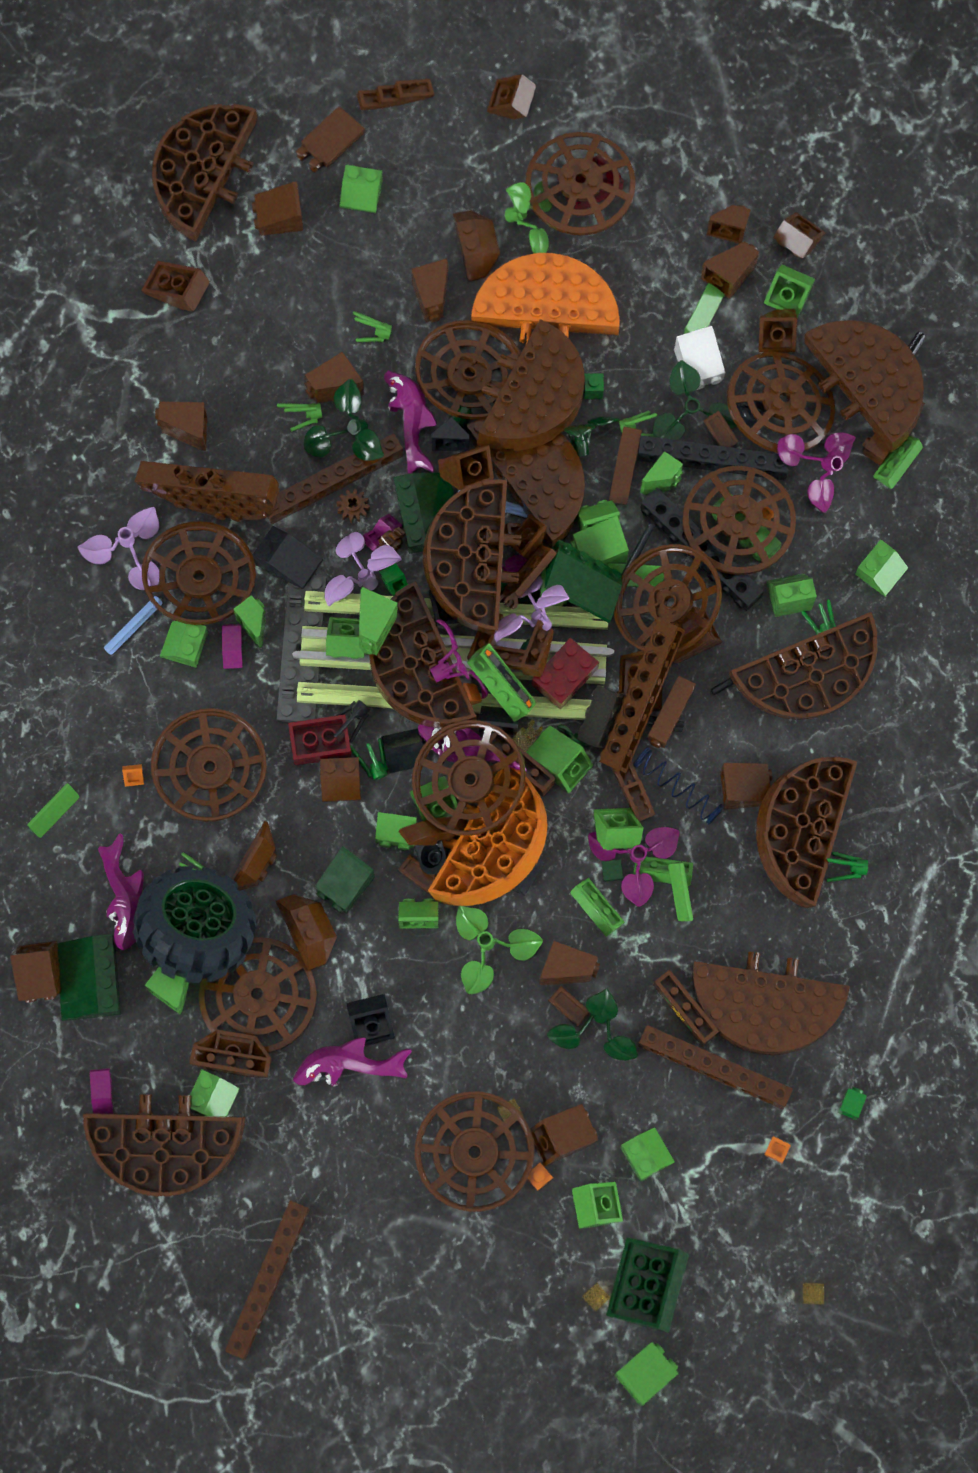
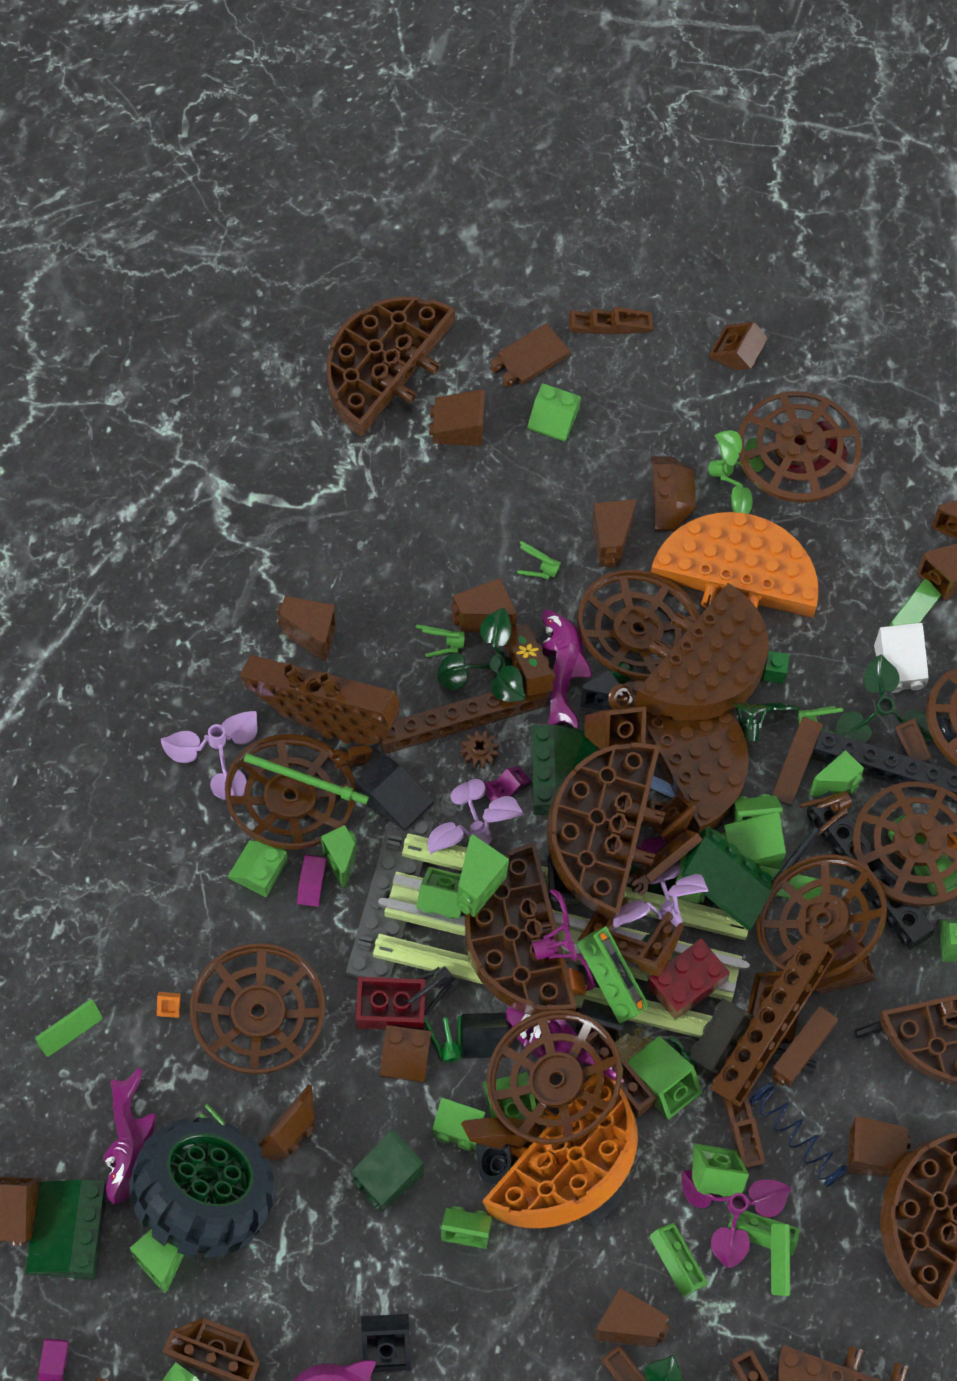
camera: 10 degrees right, 10 degrees down
(131, 626) = (202, 838): light blue axle -> none
(176, 285) = (330, 478): reddish brown slope -> none
(247, 532) = (355, 757): none -> reddish brown plate
(247, 565) = (345, 792): none -> bright green bar
(270, 999) = (273, 1294): reddish brown dish -> none
(308, 928) = (335, 1220): reddish brown wedge -> none
(381, 420) = (529, 659): none -> reddish brown brick
(393, 538) = (518, 792): reddish brown gear -> none
(393, 578) = (509, 836): green brick -> none
(413, 871) = (469, 1176): reddish brown tile -> none
(465, 440) = (620, 696): none -> reddish brown hat
(474, 922) = (529, 1251): bright green plant -> none
(612, 870) = (703, 1219): dark green tile -> none
(665, 497) = (838, 802): none -> reddish brown plant

